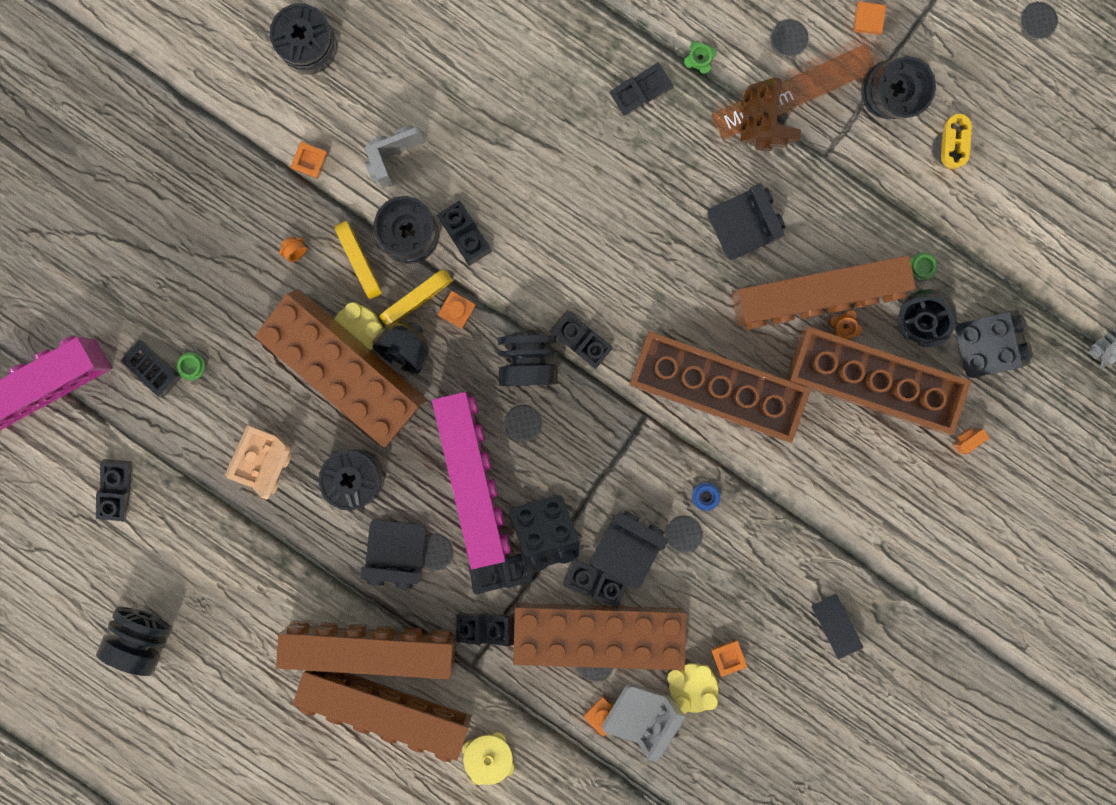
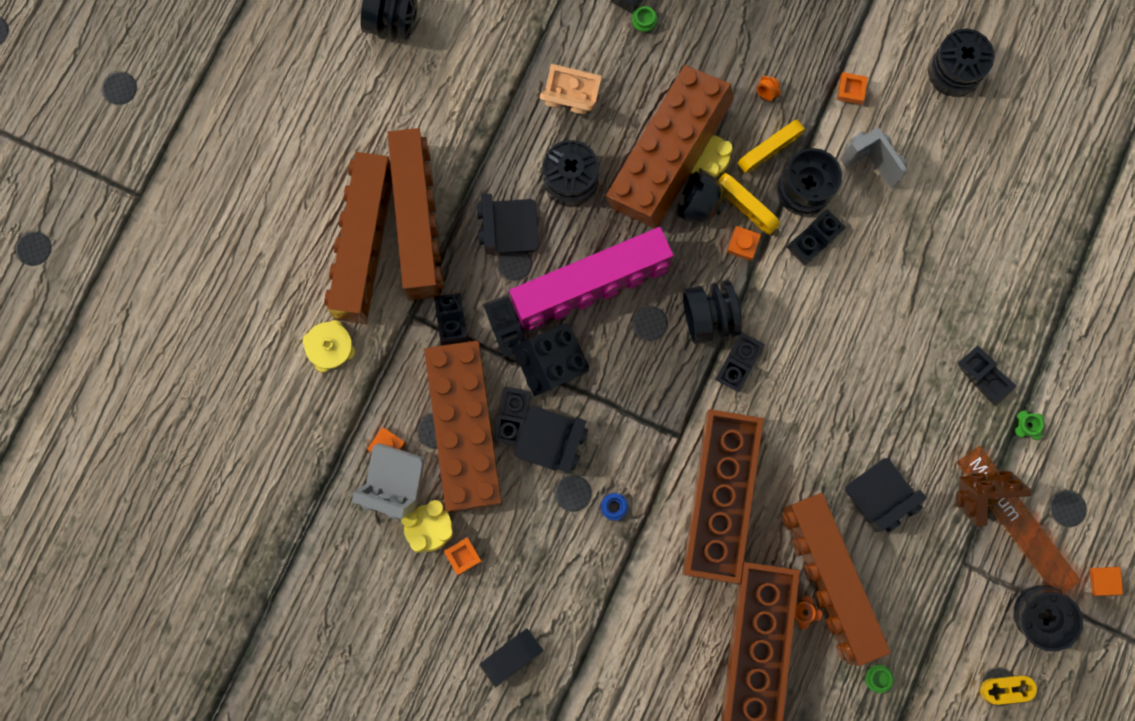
camera: 75 degrees right, 10 degrees down
(927, 317) = (832, 688): black cylinder -> none

